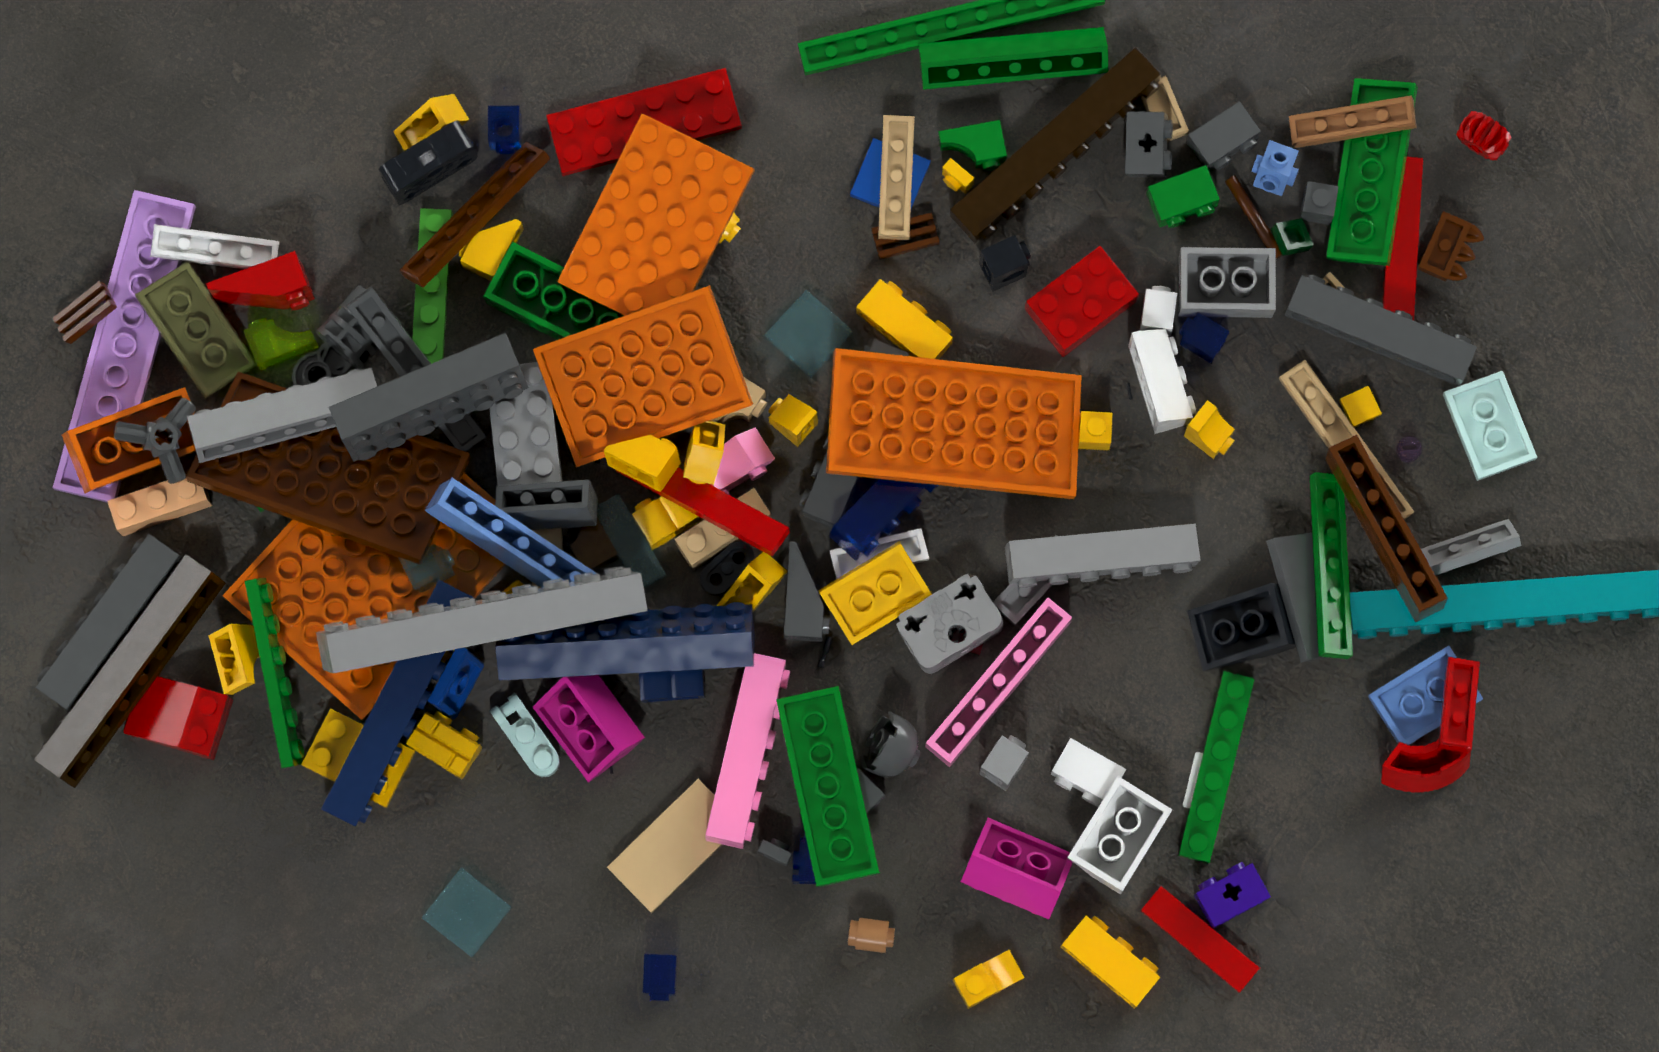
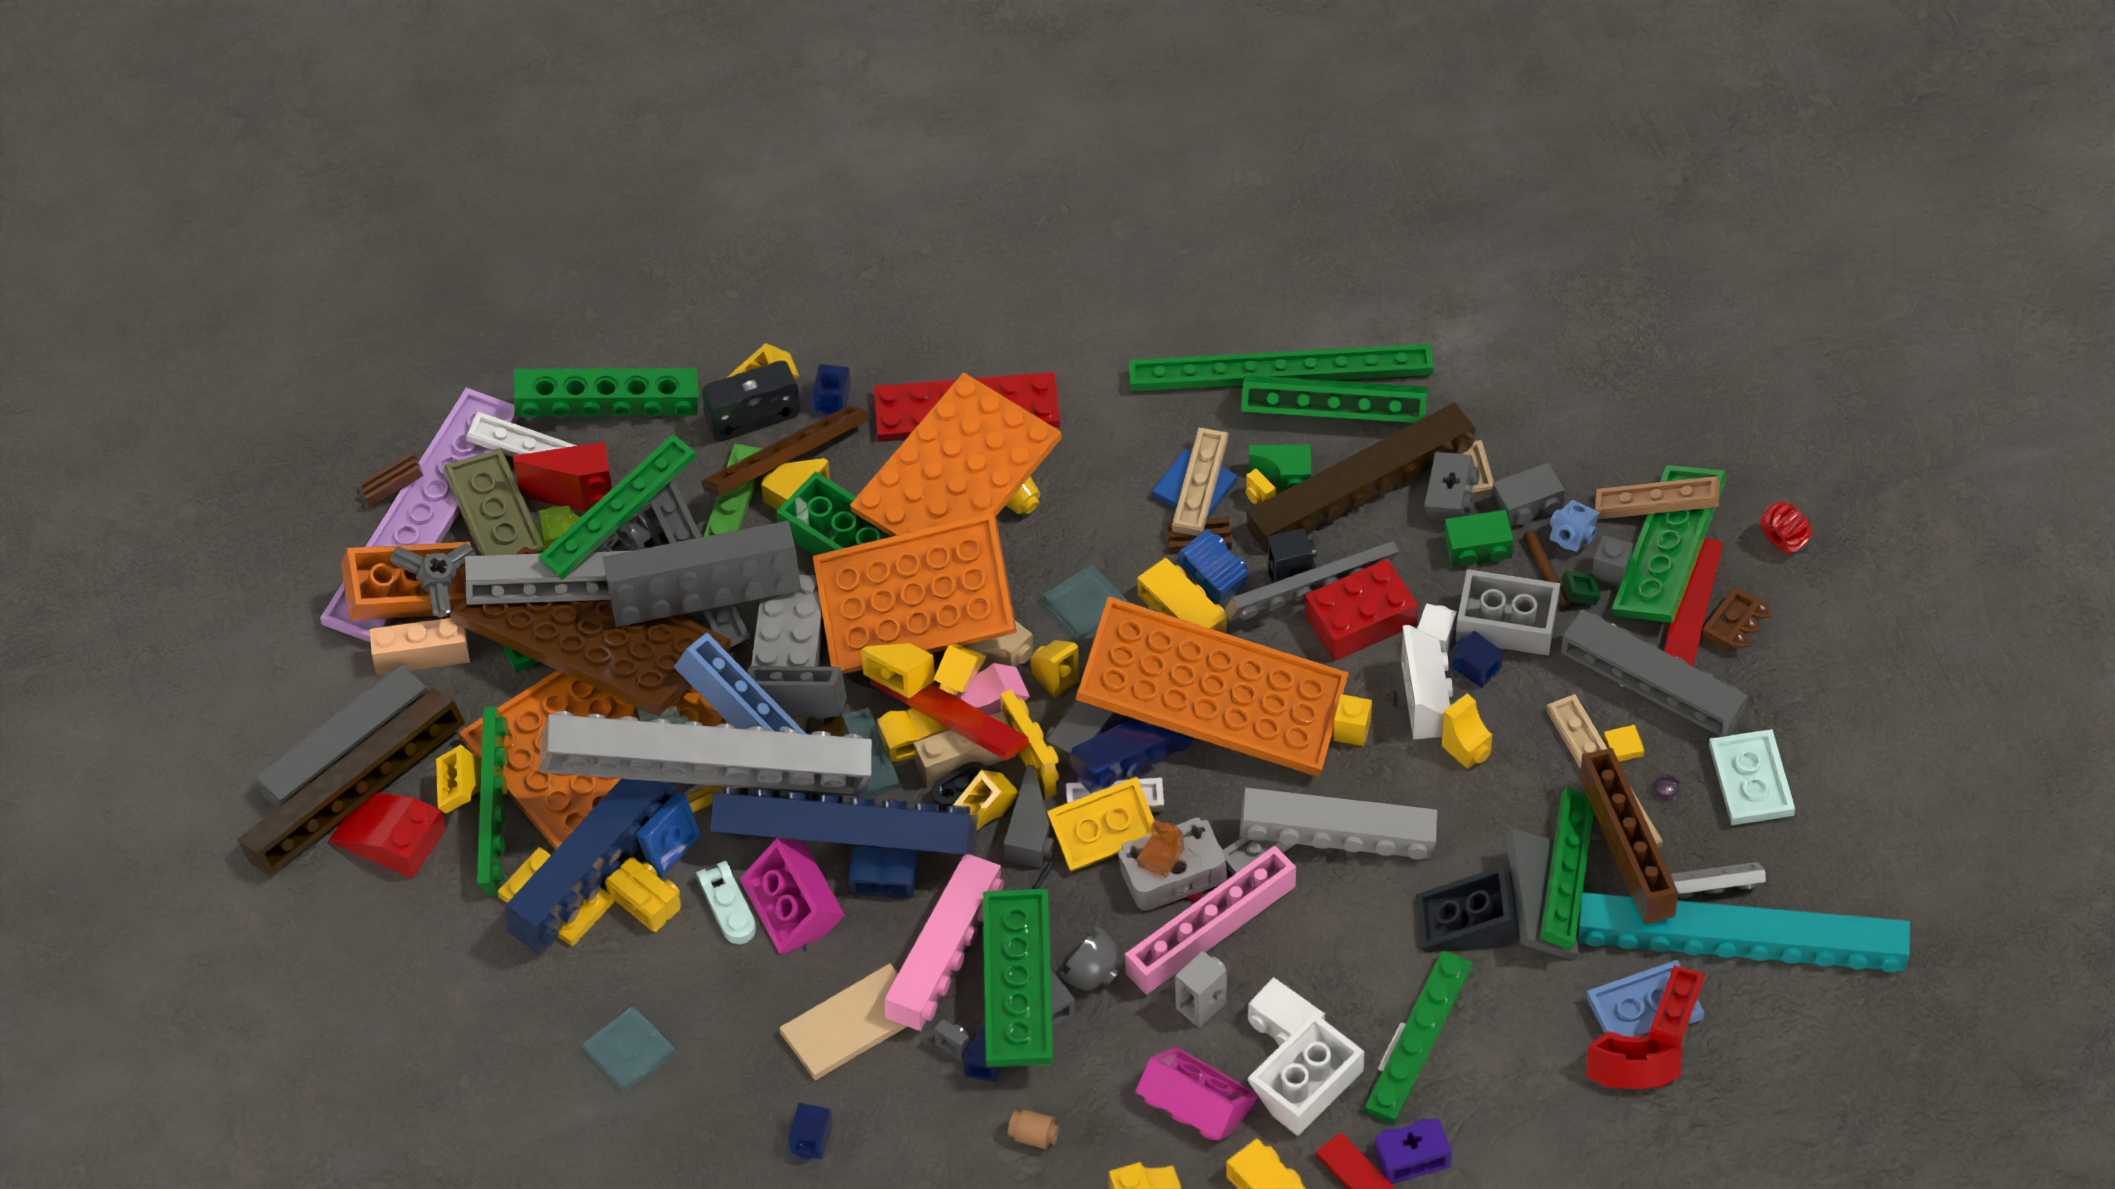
camera: 10 degrees right, 25 degrees down
(261, 168) = (606, 392): none -> green brick
(329, 341) = (617, 507): none -> green plate
(788, 515) = (1037, 753): none -> yellow plate
(928, 276) = (1213, 566): none -> blue brick
(939, 621) = (1162, 848): none -> clear orange bracket
(1040, 275) = (1295, 587): none -> dark grey plate

